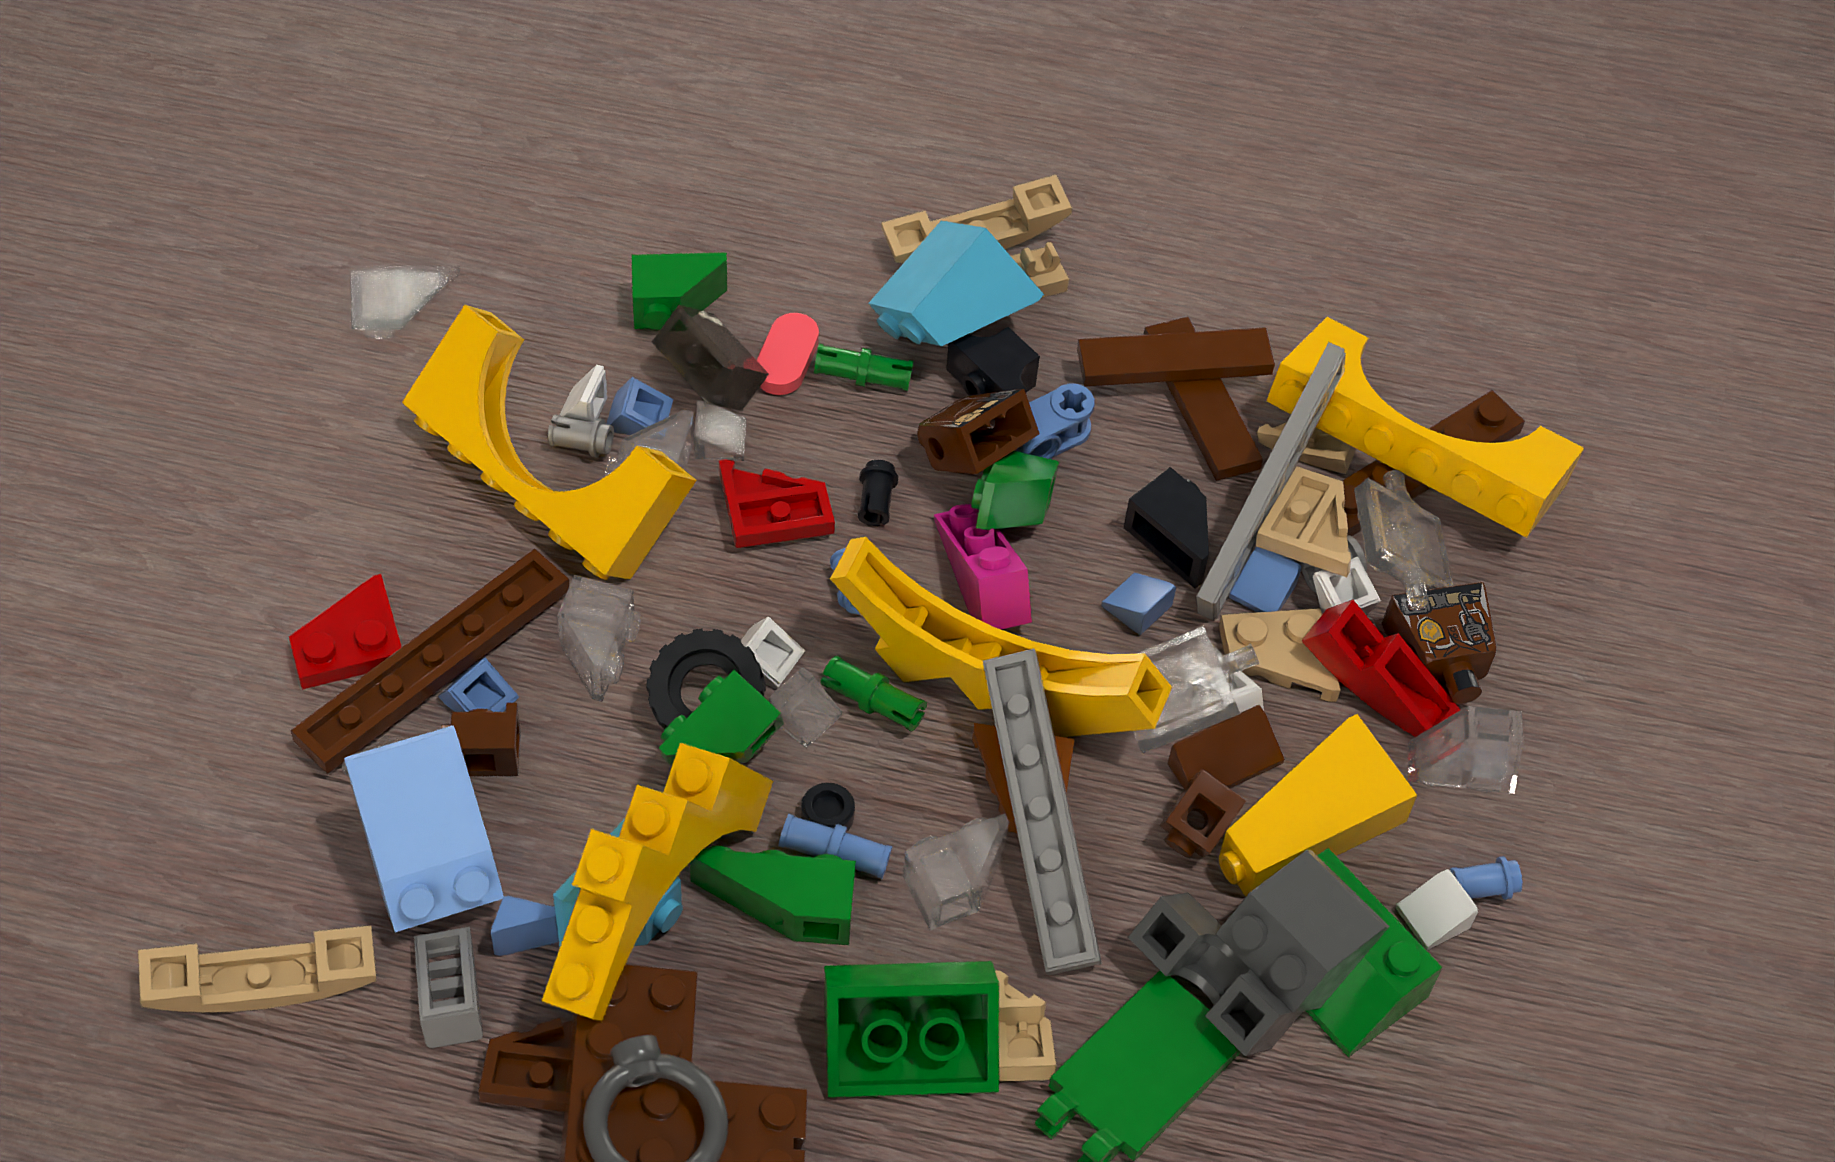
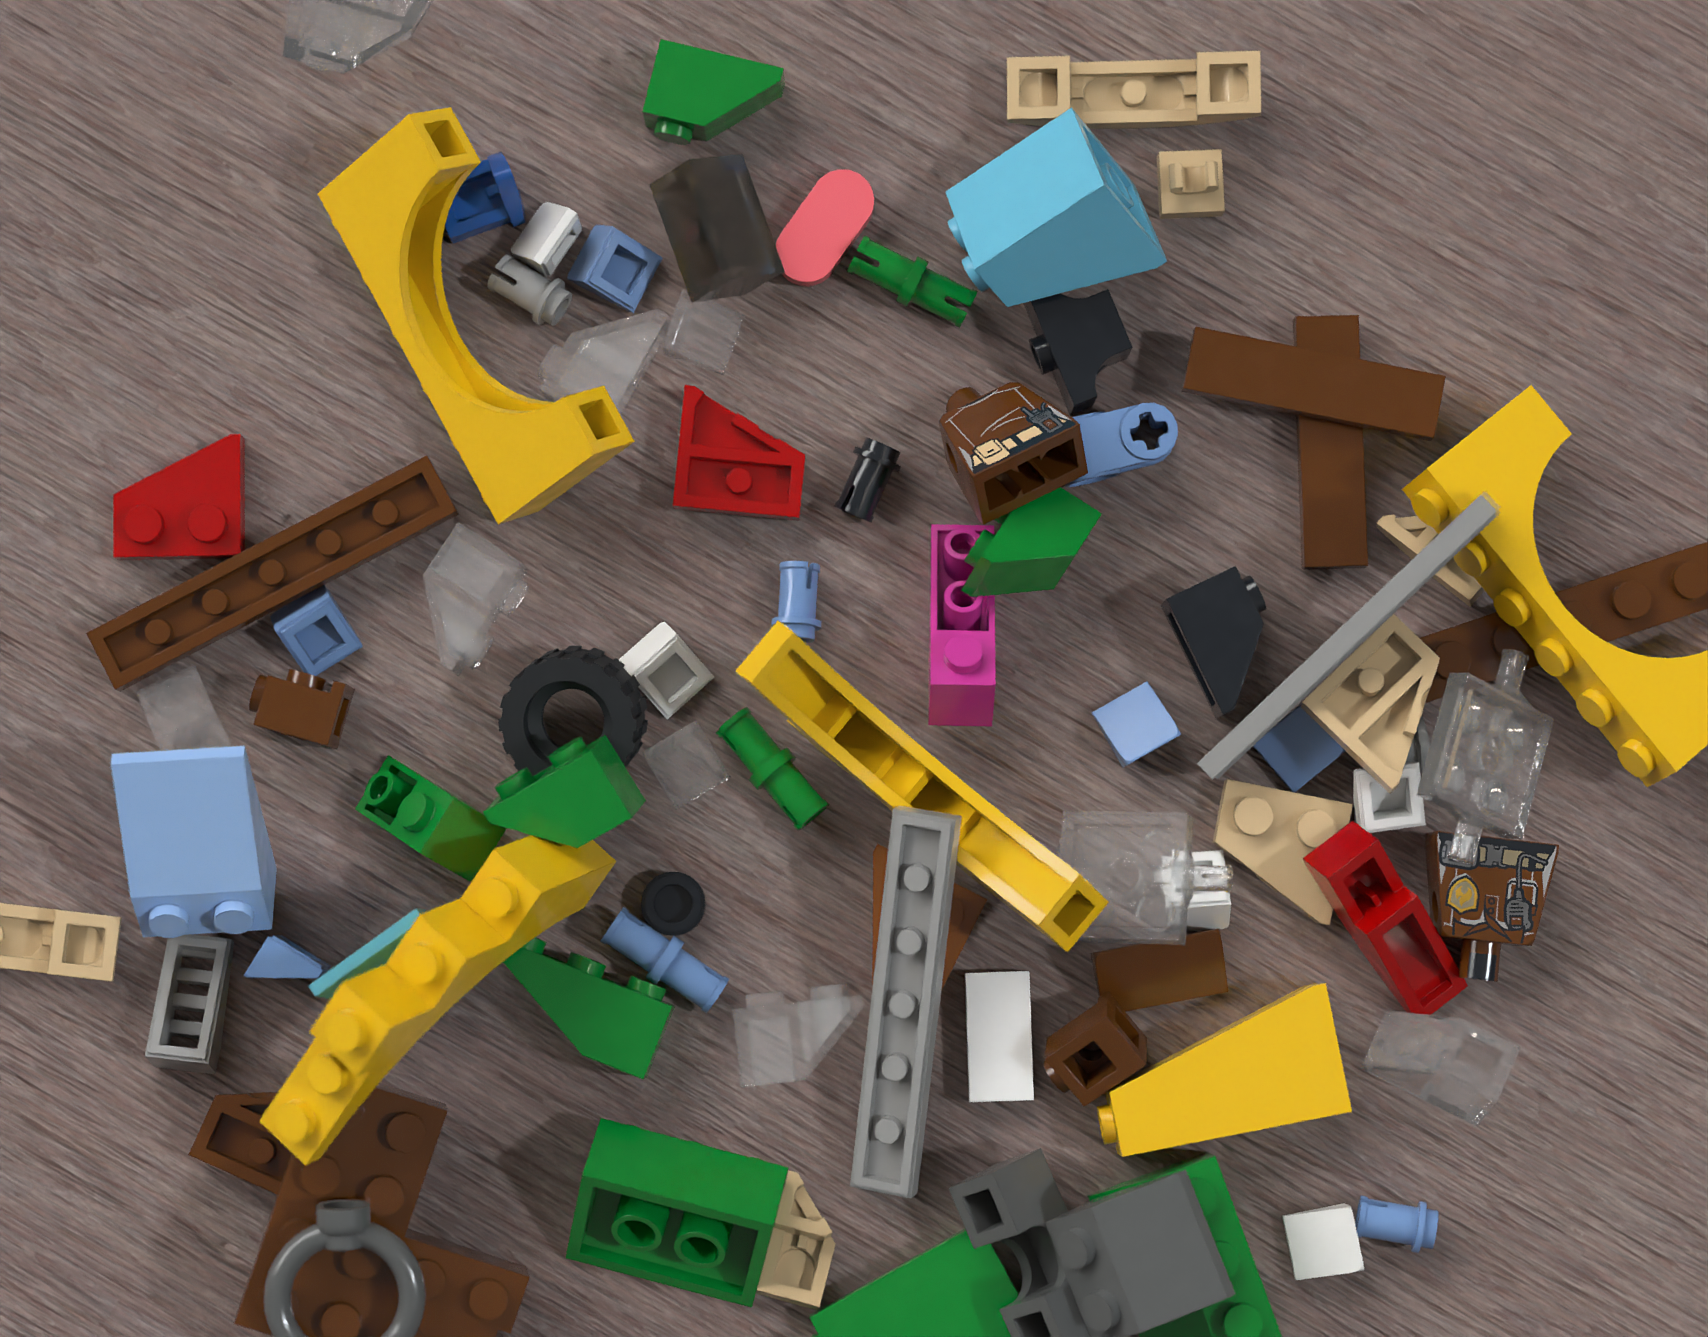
camera: 20 degrees right, 30 degrees up
(532, 388) = (485, 200): none -> blue tile
(603, 785) = (429, 819): none -> green slope
(1121, 835) = (999, 1036): none -> white tile

